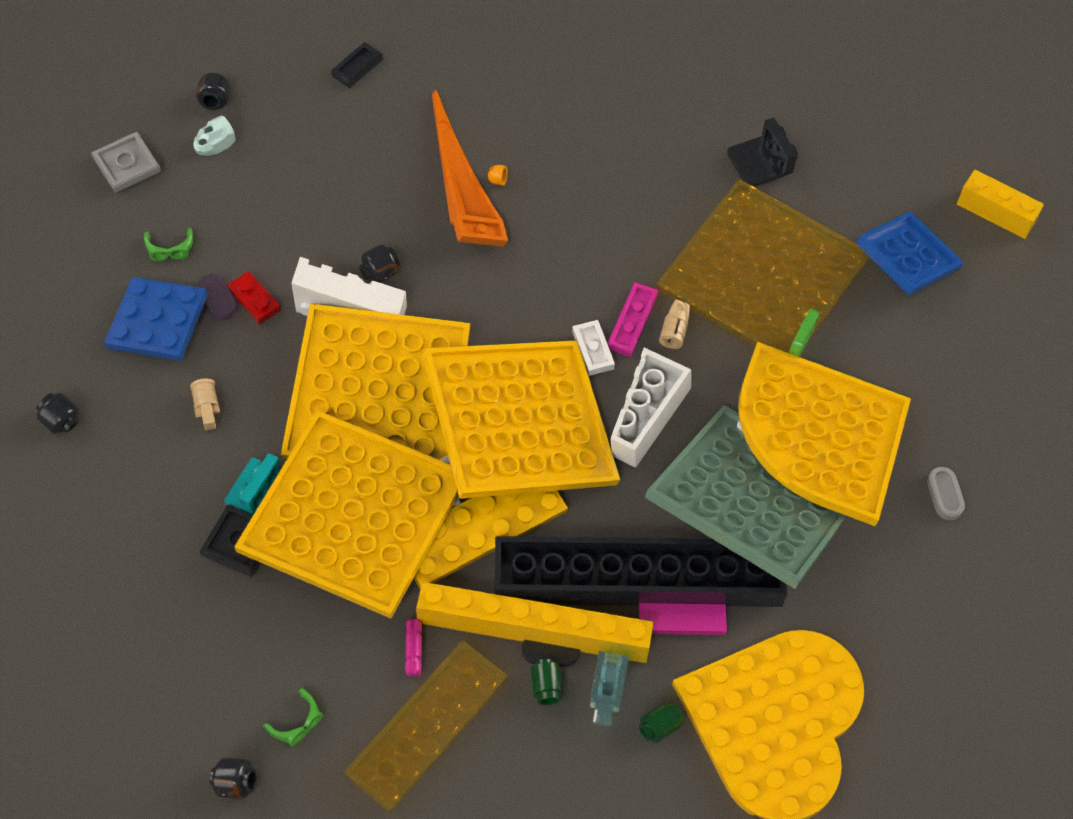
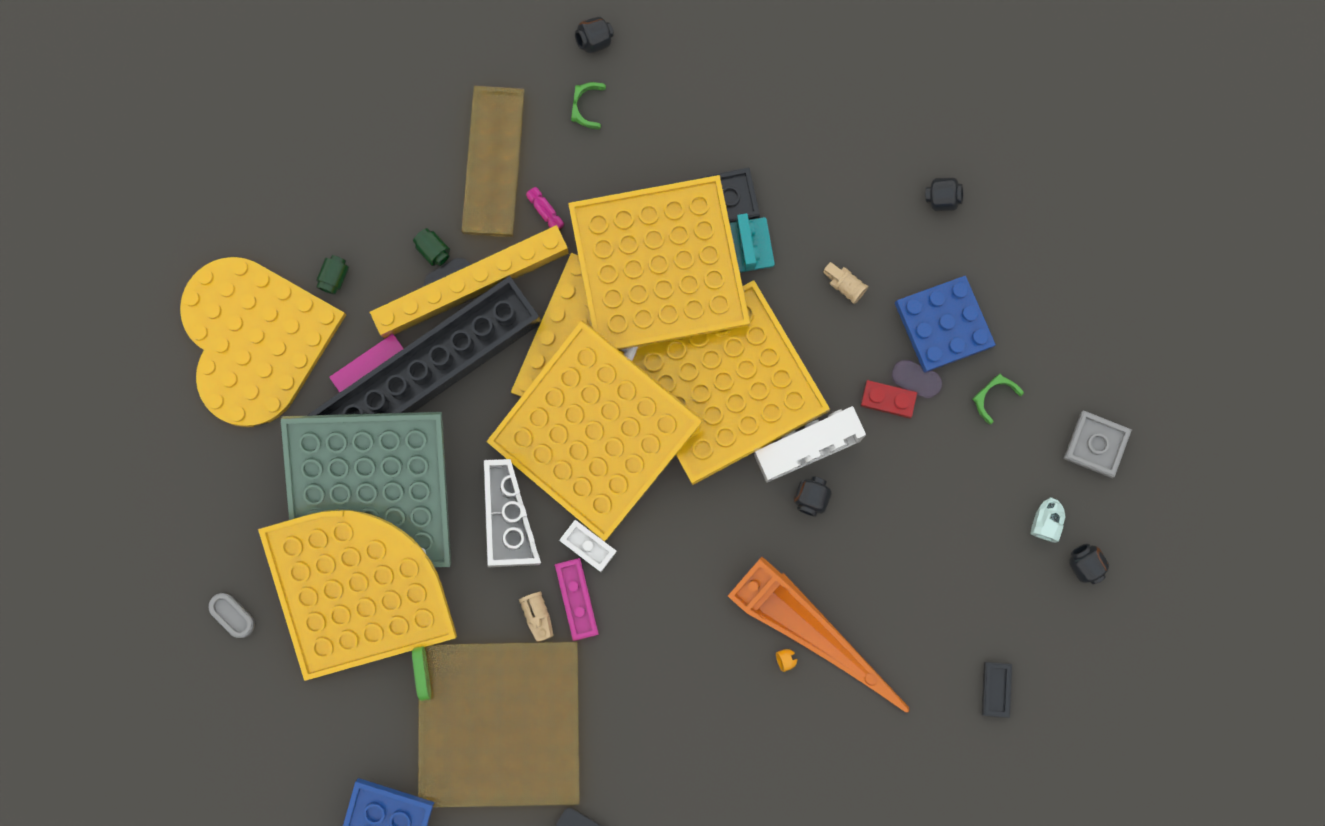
camera: 150 degrees right, 20 degrees up
(608, 676) = (384, 271): clear light blue torso -> none

